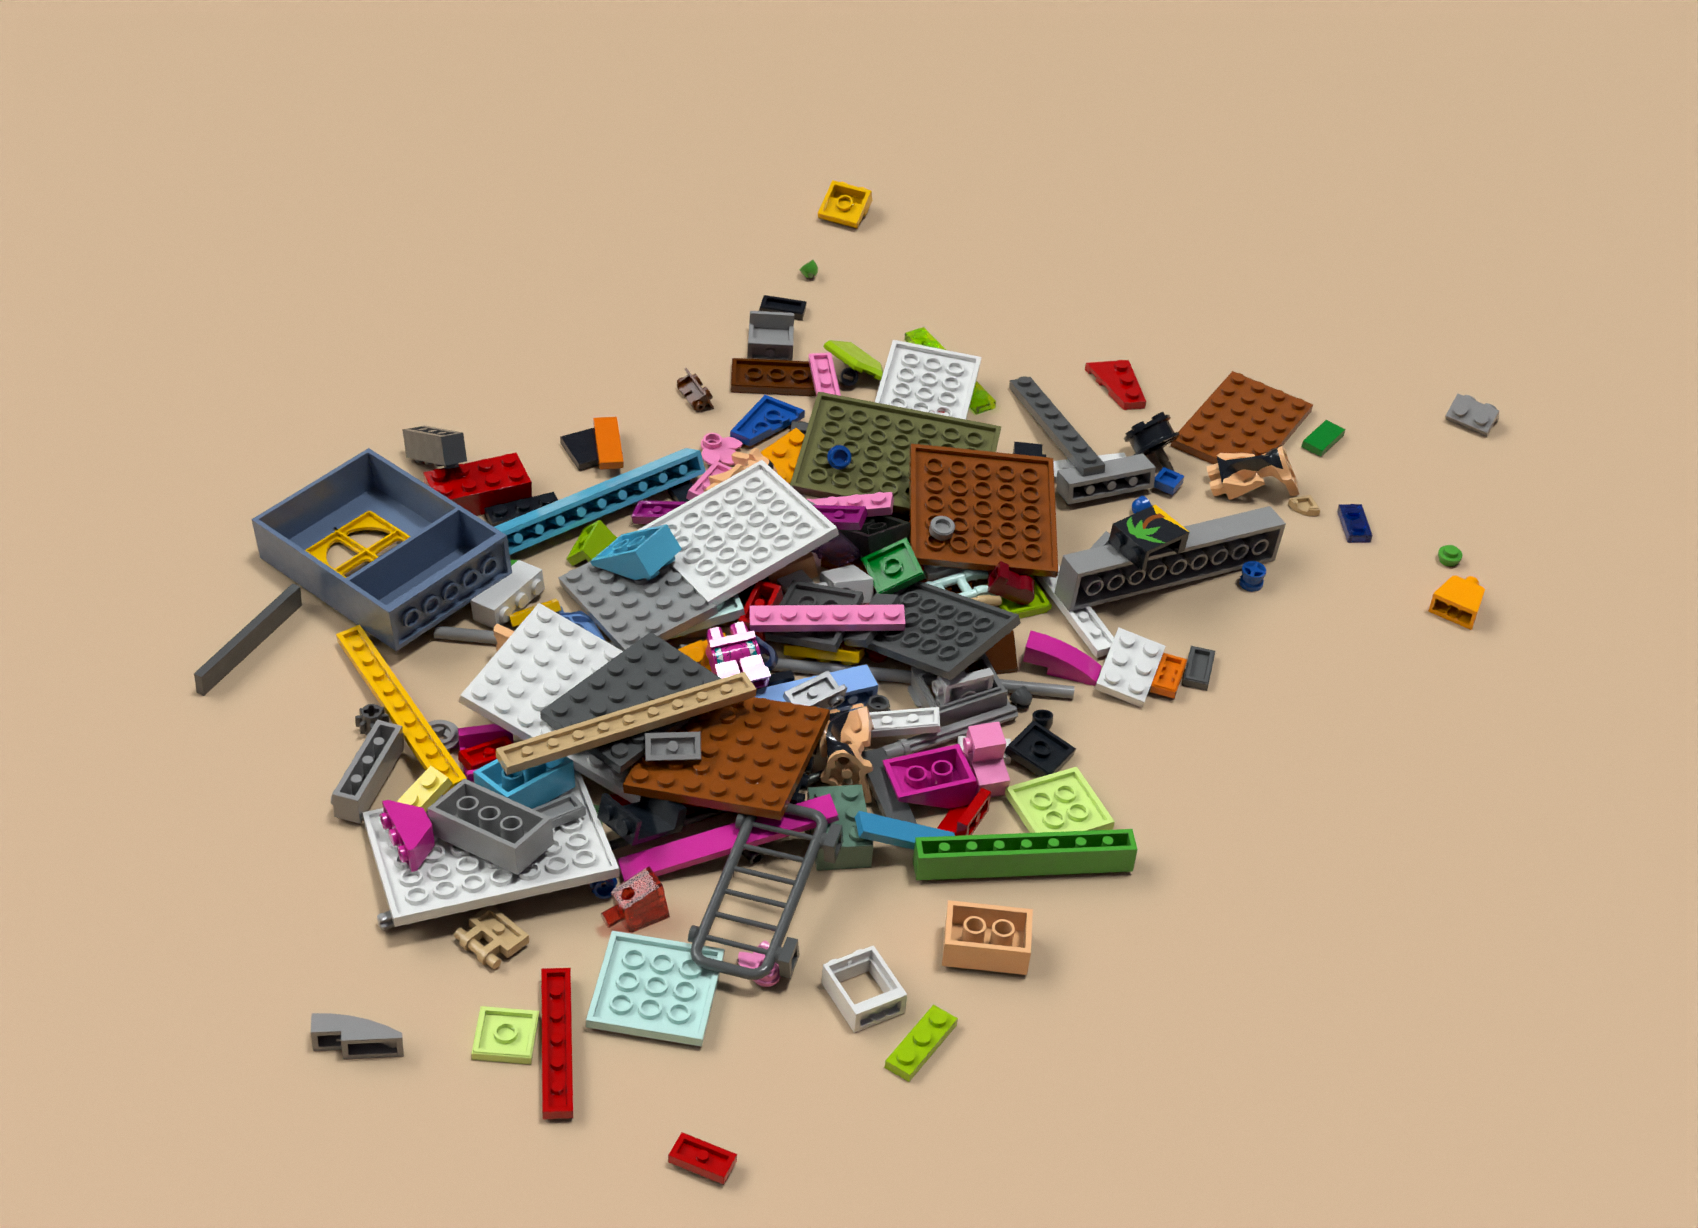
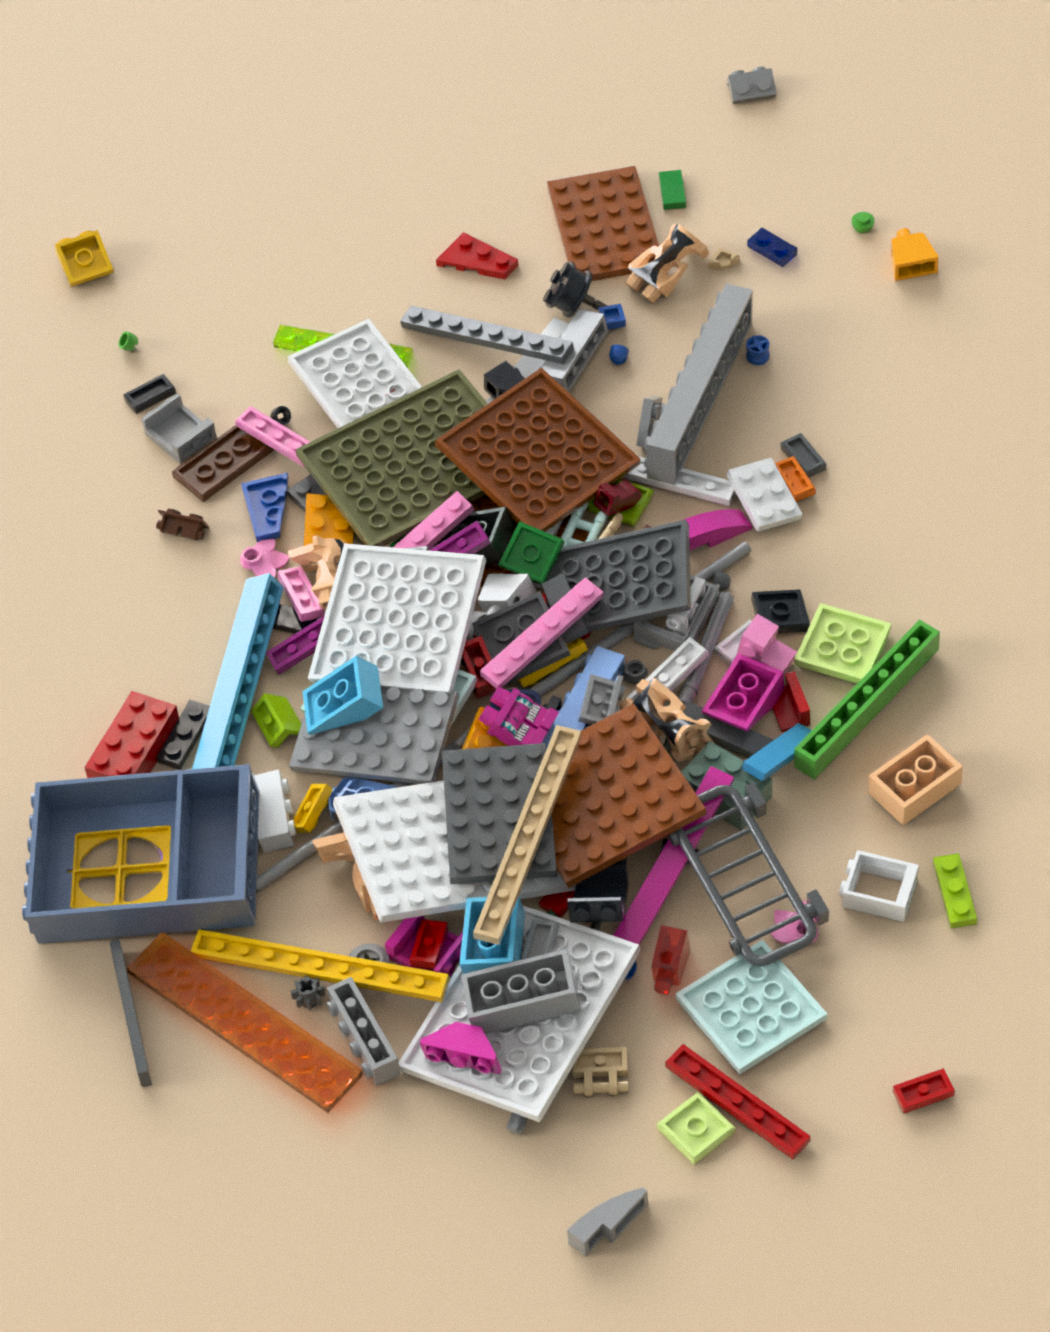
camera: 35 degrees left, 10 degrees up
(309, 707) = (245, 1022): none -> clear orange plate
(426, 789) = (431, 1009): light yellow plate -> none
(435, 446) = (69, 737): dark grey brick -> none
(581, 448) = (165, 638): black tile -> none
(608, 443) = (179, 623): orange tile -> none
(673, 746) = (575, 823): light grey plate -> none
(839, 457) = (383, 493): blue plate -> none
(855, 357) = (270, 395): lime tile -> none
(942, 528) = (532, 492): light grey tile -> none
(1043, 717) = (754, 584): black hinge -> none
(1145, 533) = (689, 380): black panel -> none

